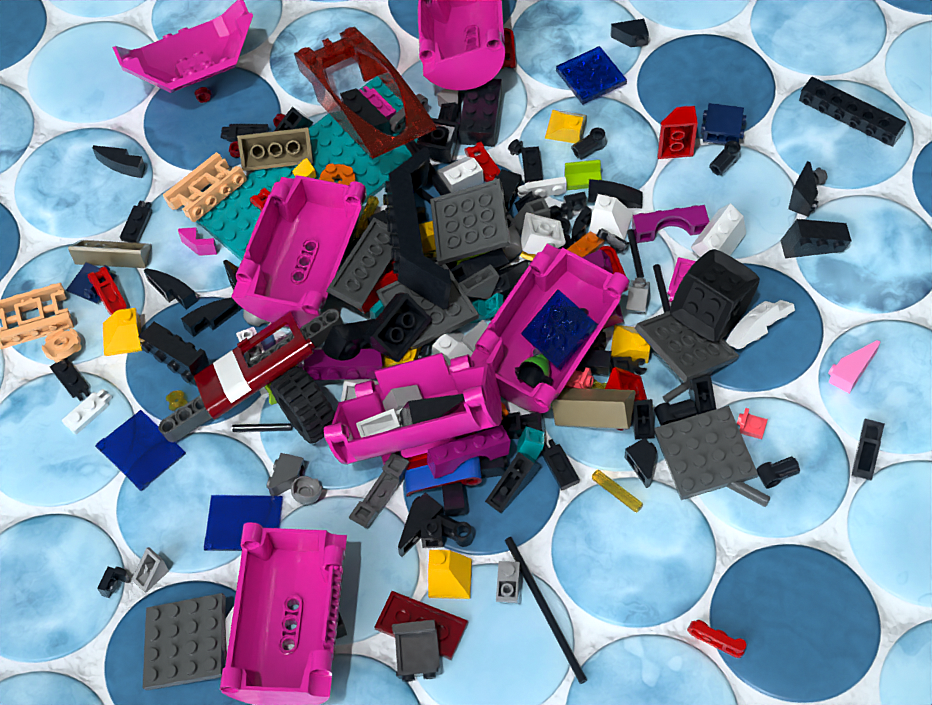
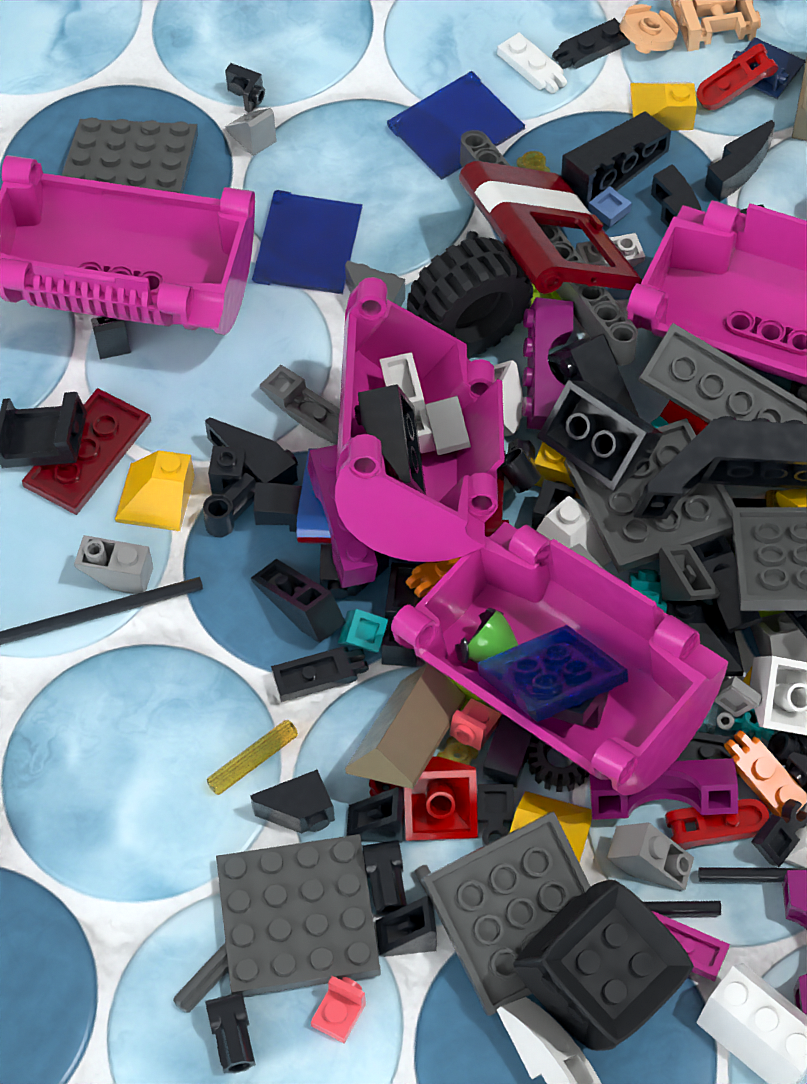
camera: 95 degrees right, 0 degrees up
(212, 352) = (609, 206): none -> medium blue plate
(306, 490) = (332, 312): light grey hair -> none

